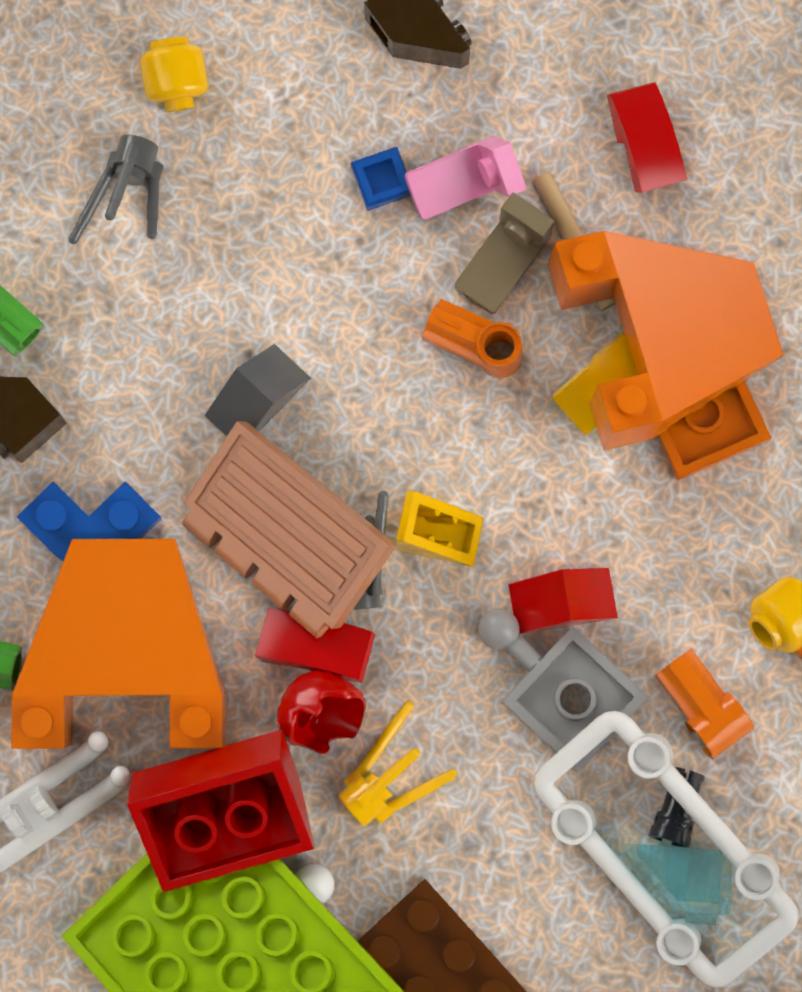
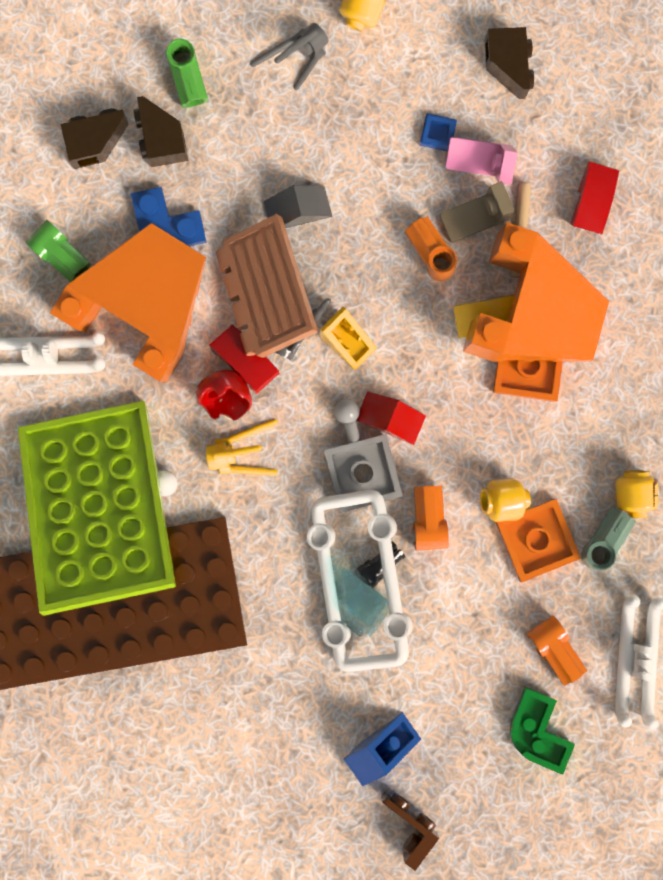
camera: 25 degrees right, 5 degrees up
(220, 811) = (138, 414): red slope -> none

